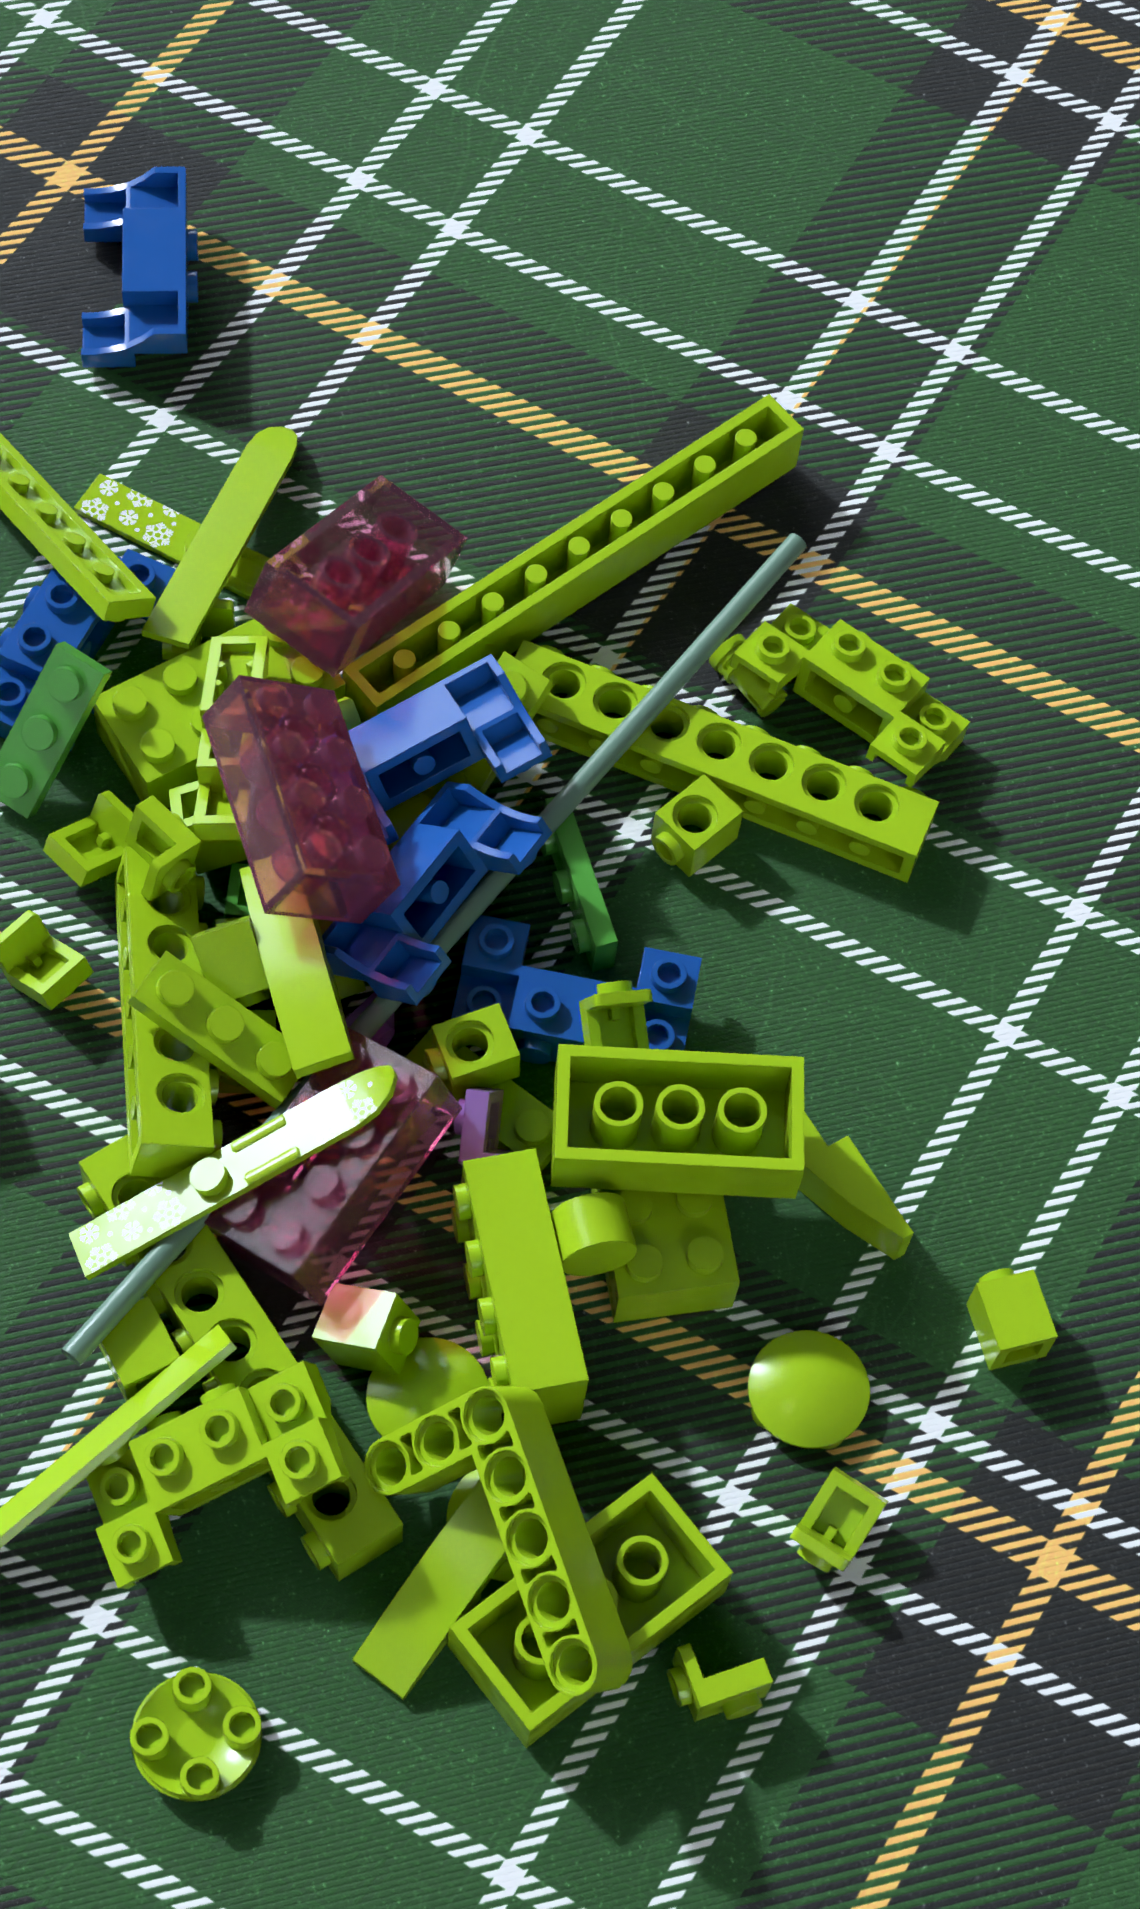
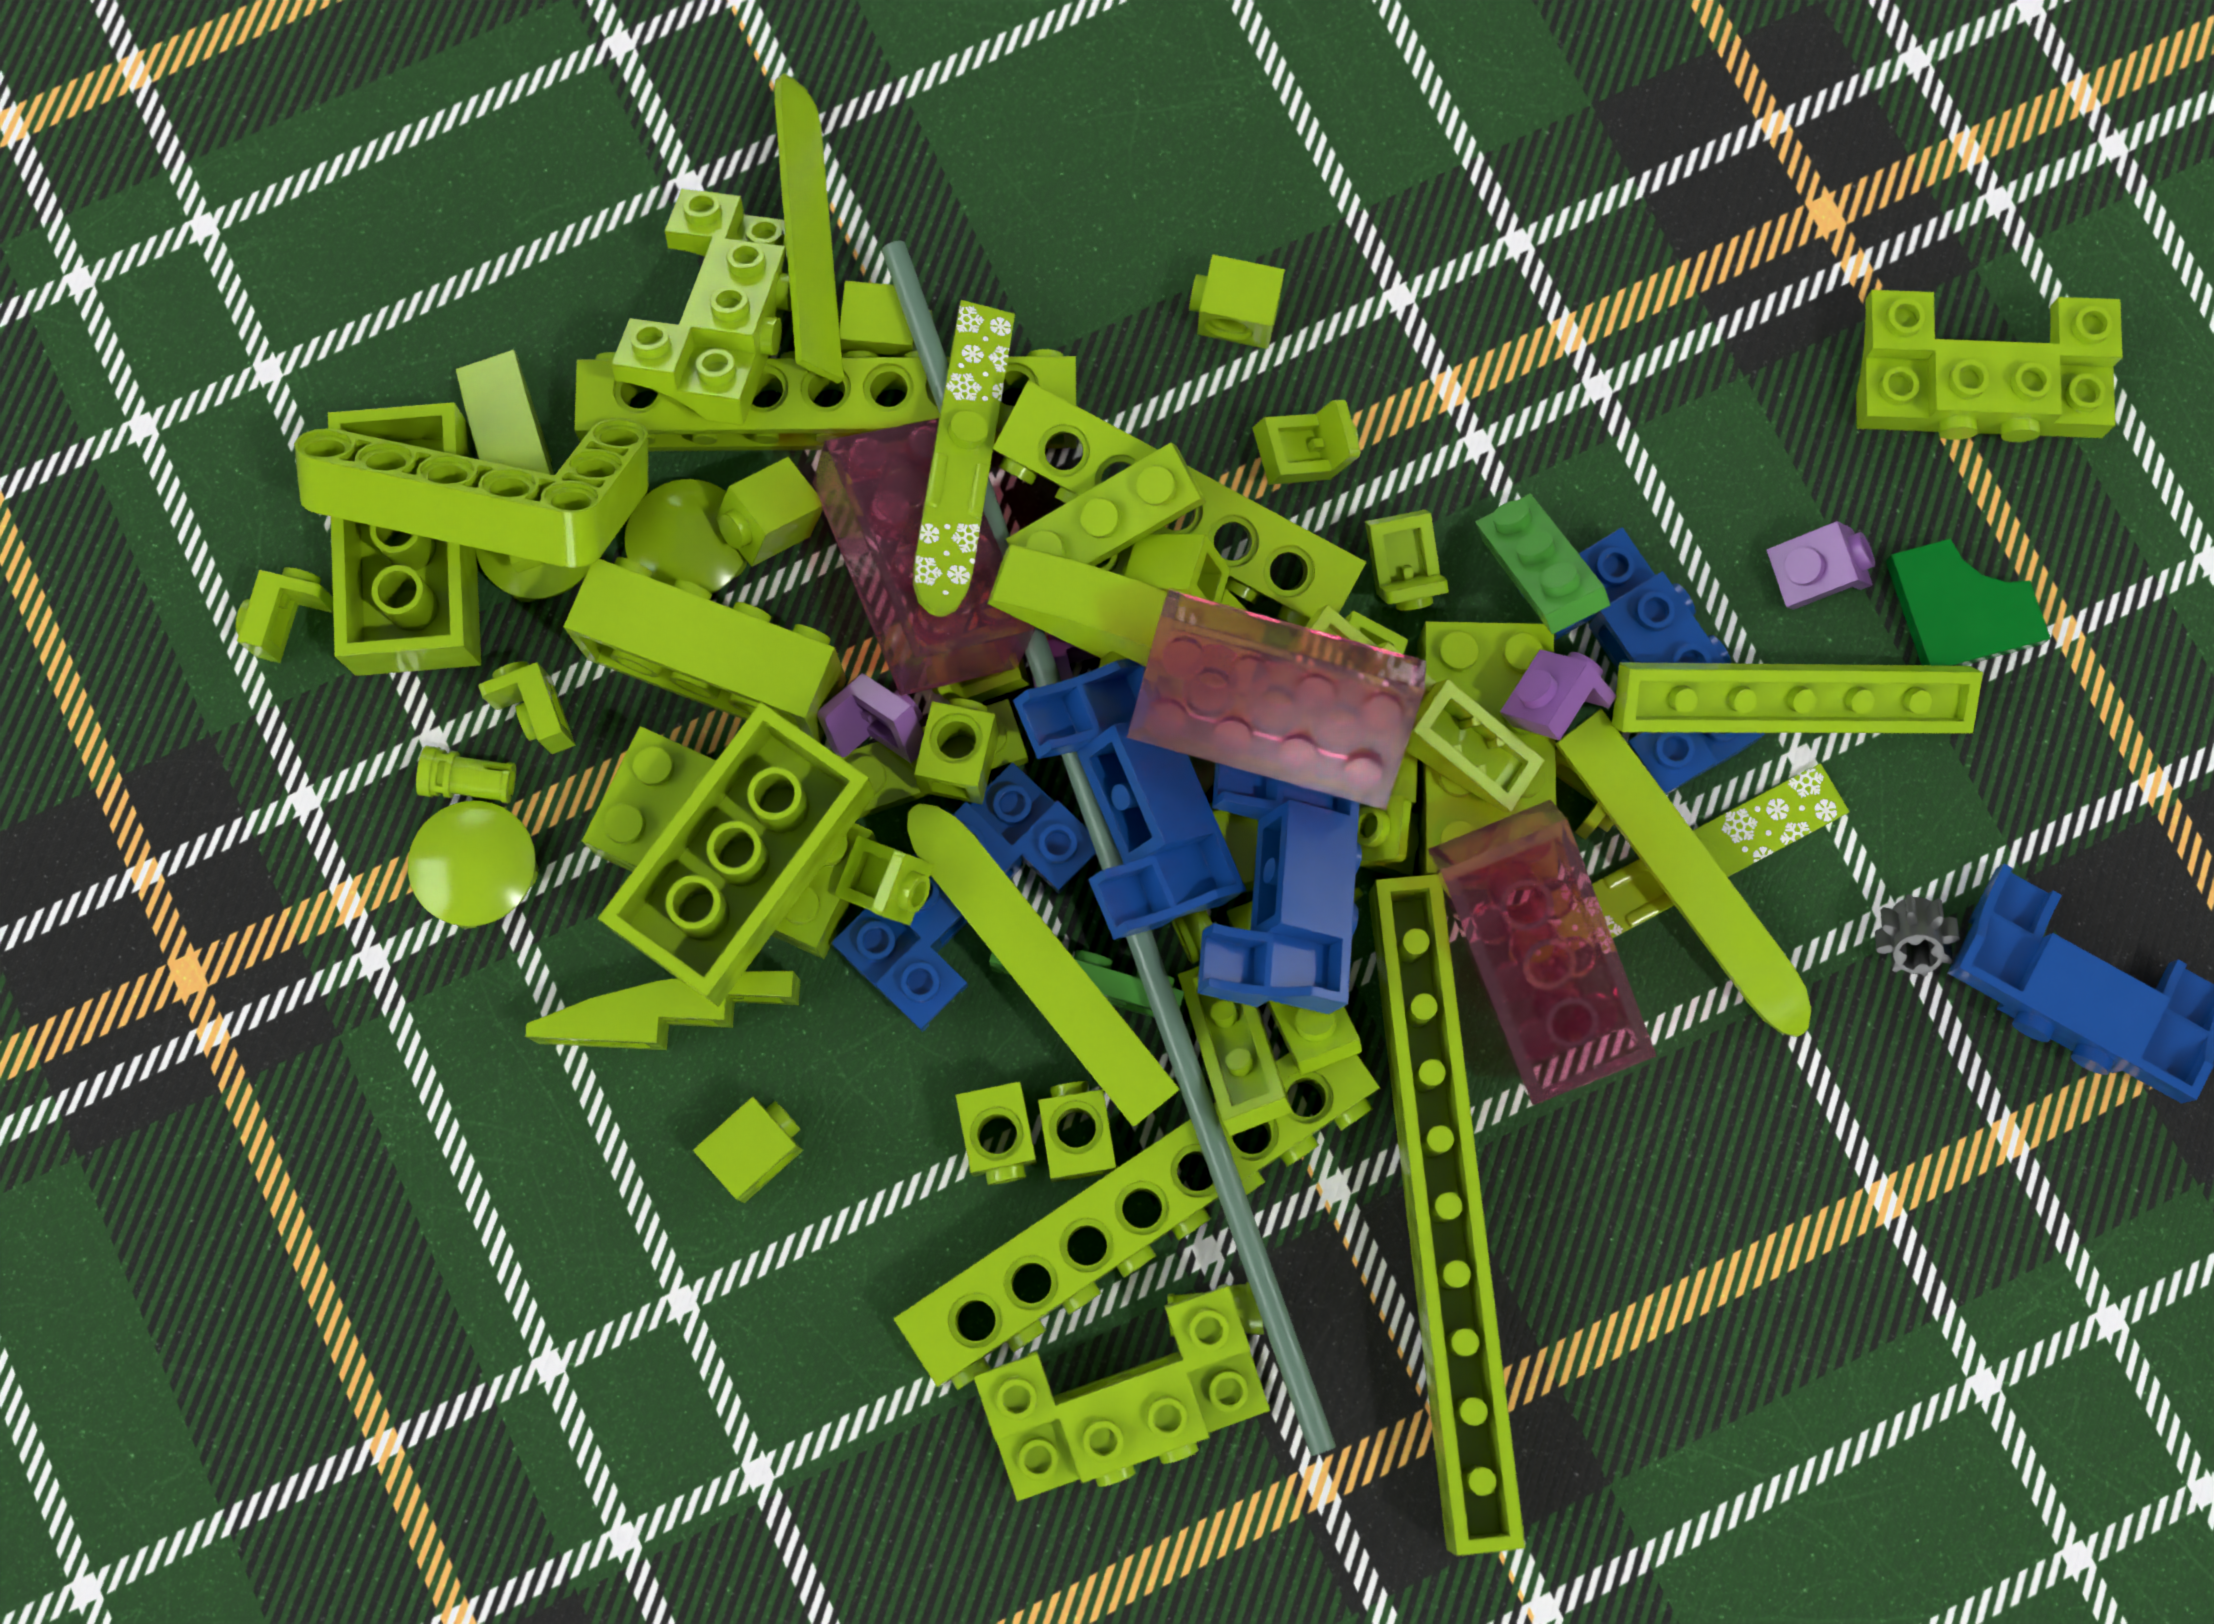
camera: 130 degrees right, 15 degrees up
(156, 651) = (1554, 693): none -> medium lavender bracket
(165, 844) = (1344, 590): lime bracket -> none
(172, 382) = (1917, 935): none -> dark grey gear
(196, 1735) = (534, 195): lime dish -> none
(572, 732) = (1236, 1058): none -> lime plate
(593, 1234) = (696, 723): lime piece -> none
(594, 904) = (1040, 963): none -> lime piece
(653, 1408) = (541, 712): none -> lime bracket
(725, 899) = (992, 1103): none -> lime brick
(752, 1451) = (451, 774): none -> lime pin
(837, 1522) = (335, 796): lime bracket -> none
(869, 1037) = (750, 1148): none -> lime brick
(1011, 1318) = (402, 1082): lime brick -> none

